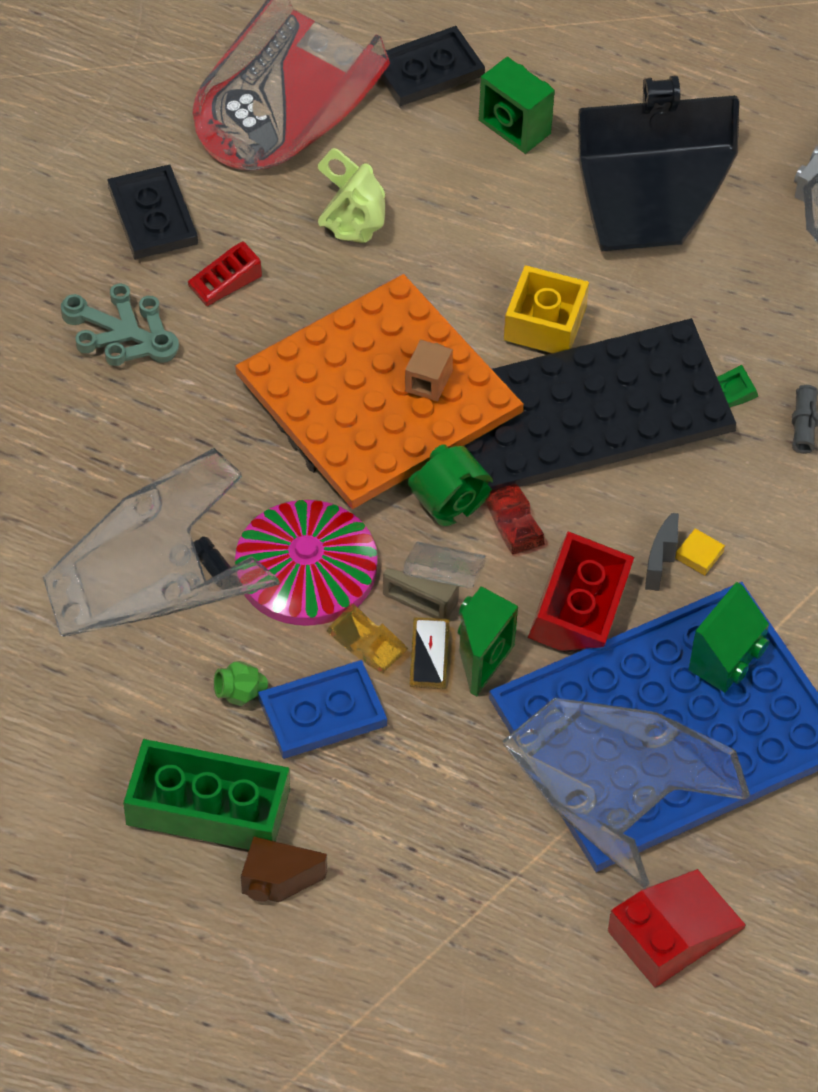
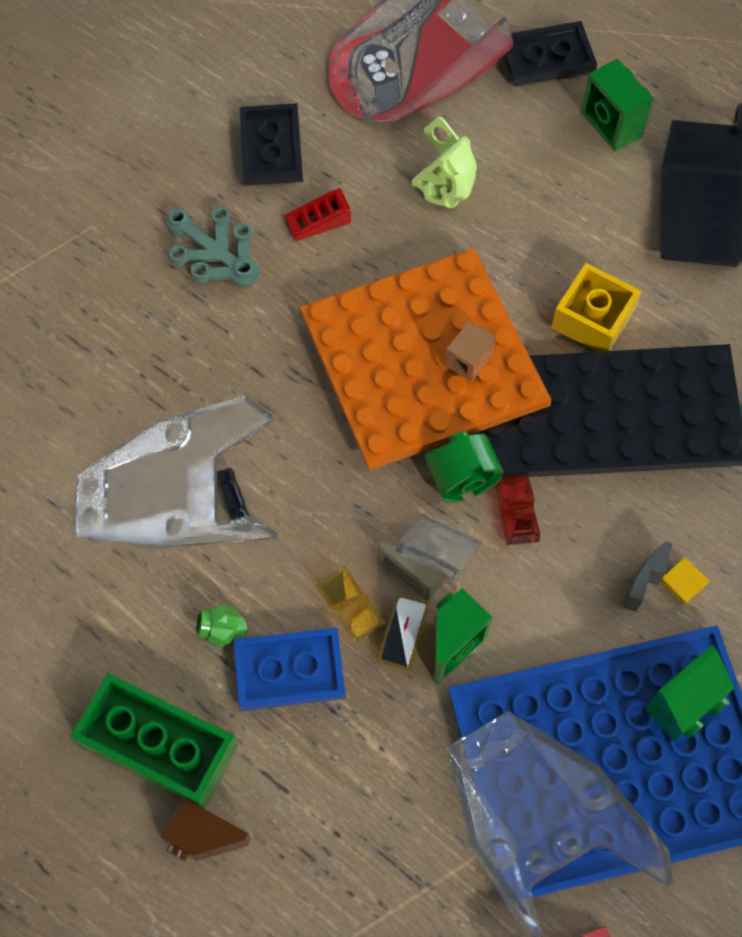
camera: 15 degrees right, 10 degrees up
(317, 554) = (320, 508): dish -> none
(581, 595) = (559, 608): red slope -> none

